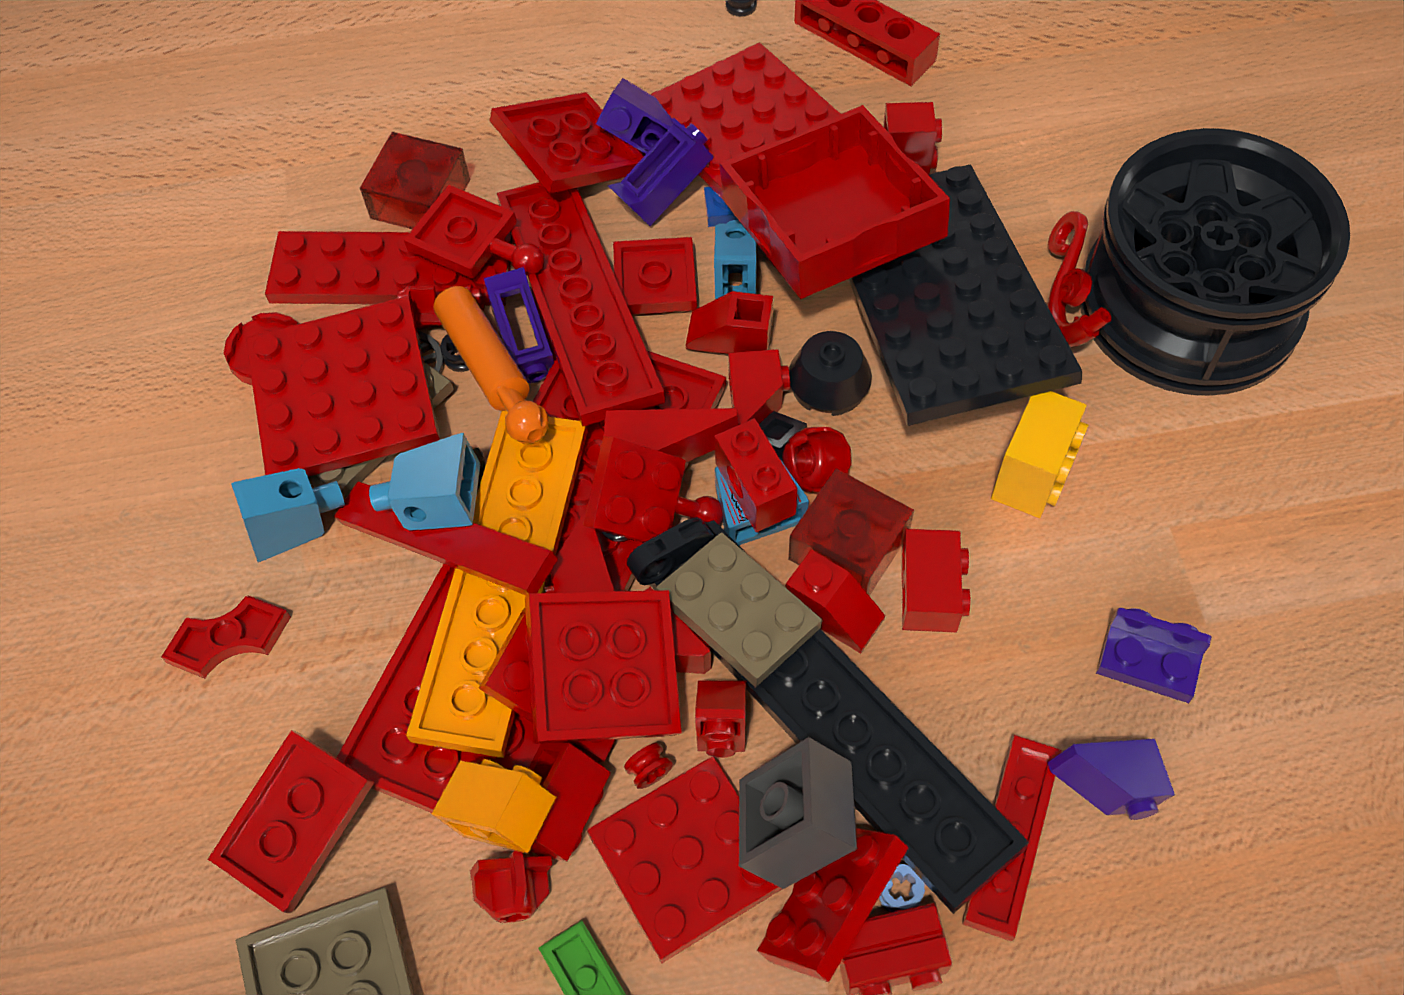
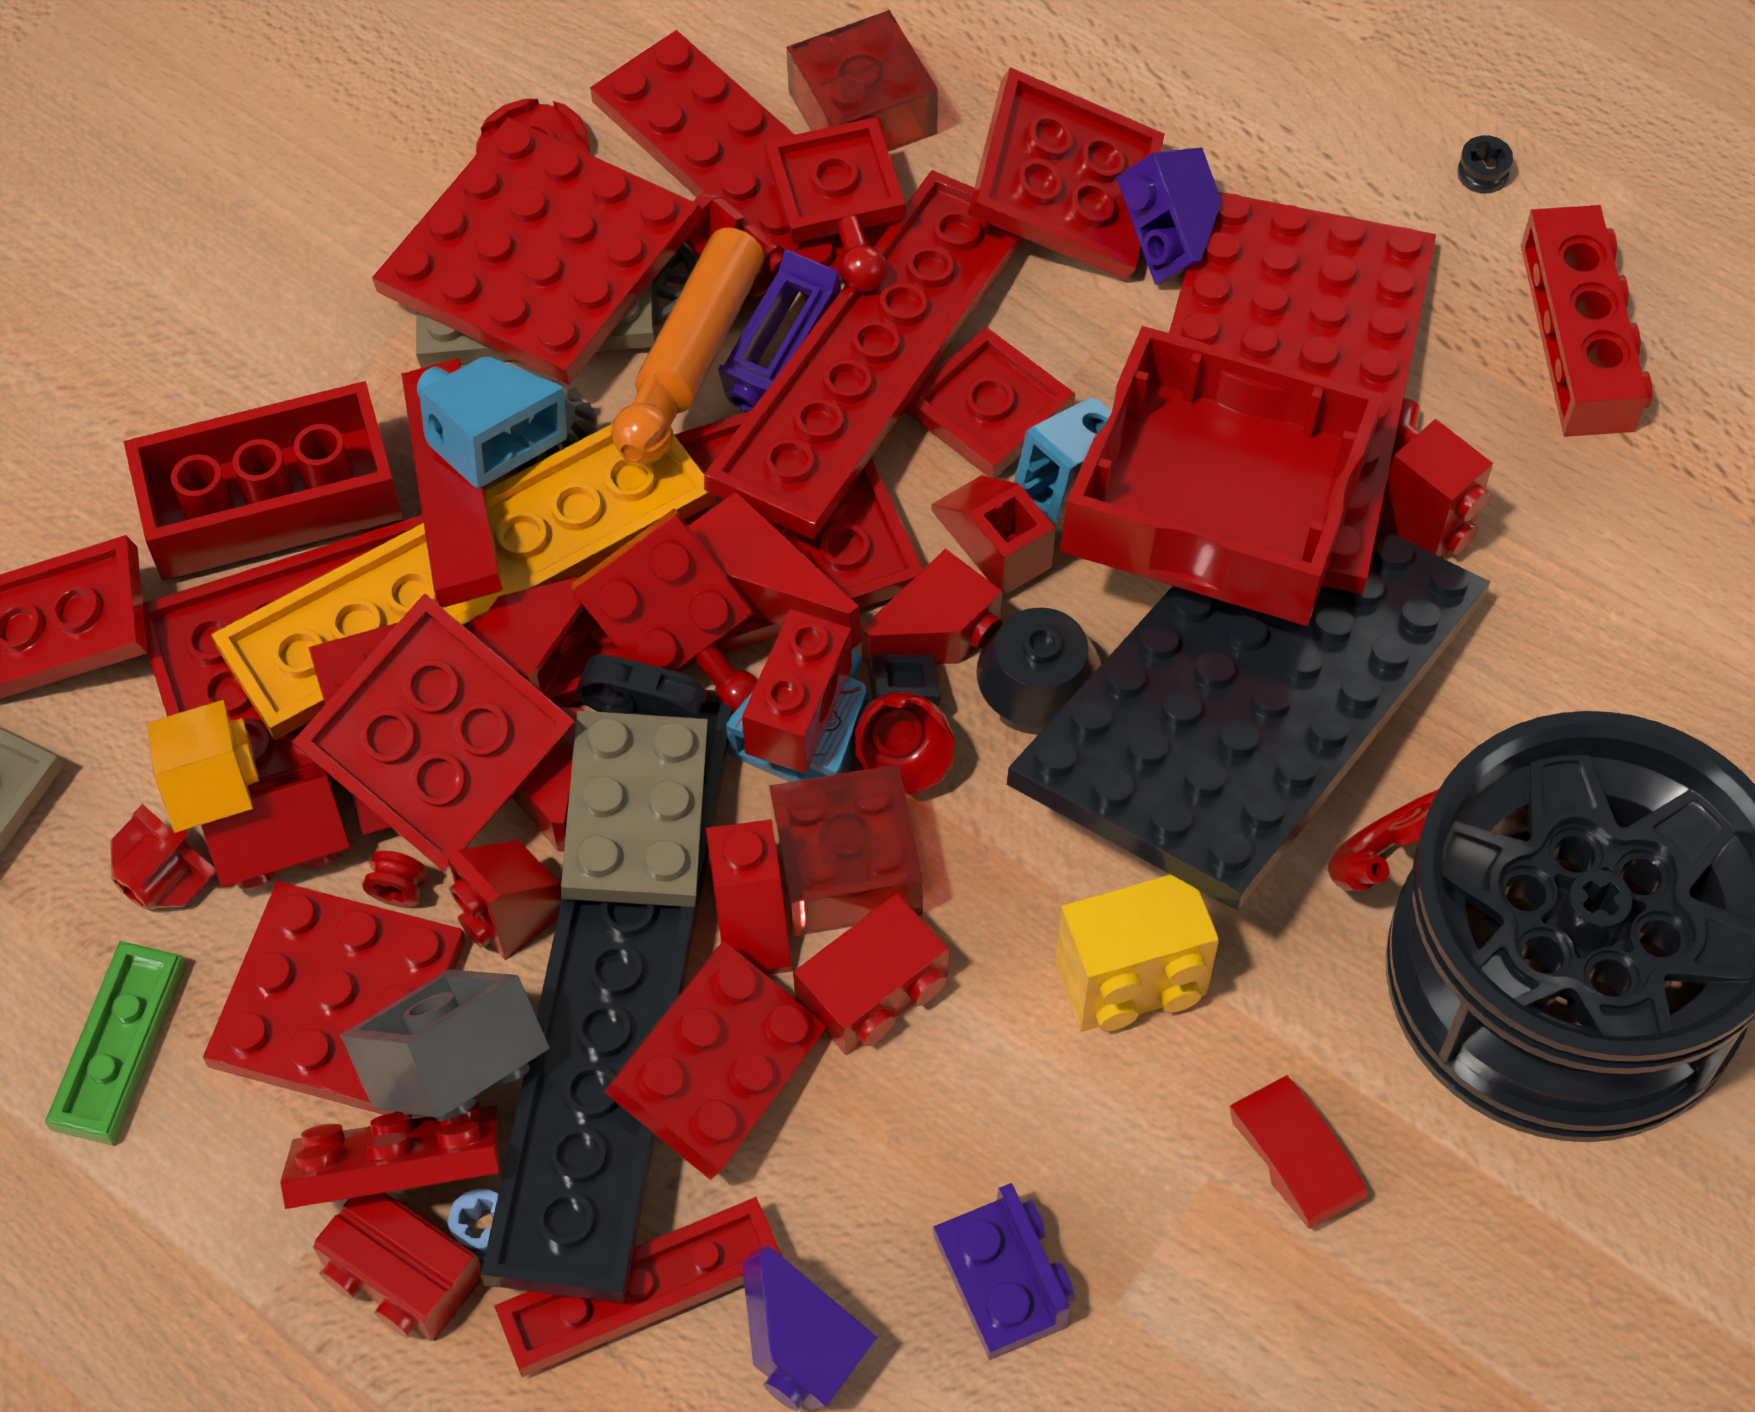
camera: 45 degrees right, 0 degrees up
(206, 643) = (170, 395): red tile -> none
(284, 510) = (352, 323): dark azure torso -> none
(328, 634) = (262, 480): none -> red brick
(664, 171) = (1118, 293): dark purple window -> none
(922, 690) = (716, 1060): none -> red plate
(1201, 475) = (1299, 1150): none -> red slope

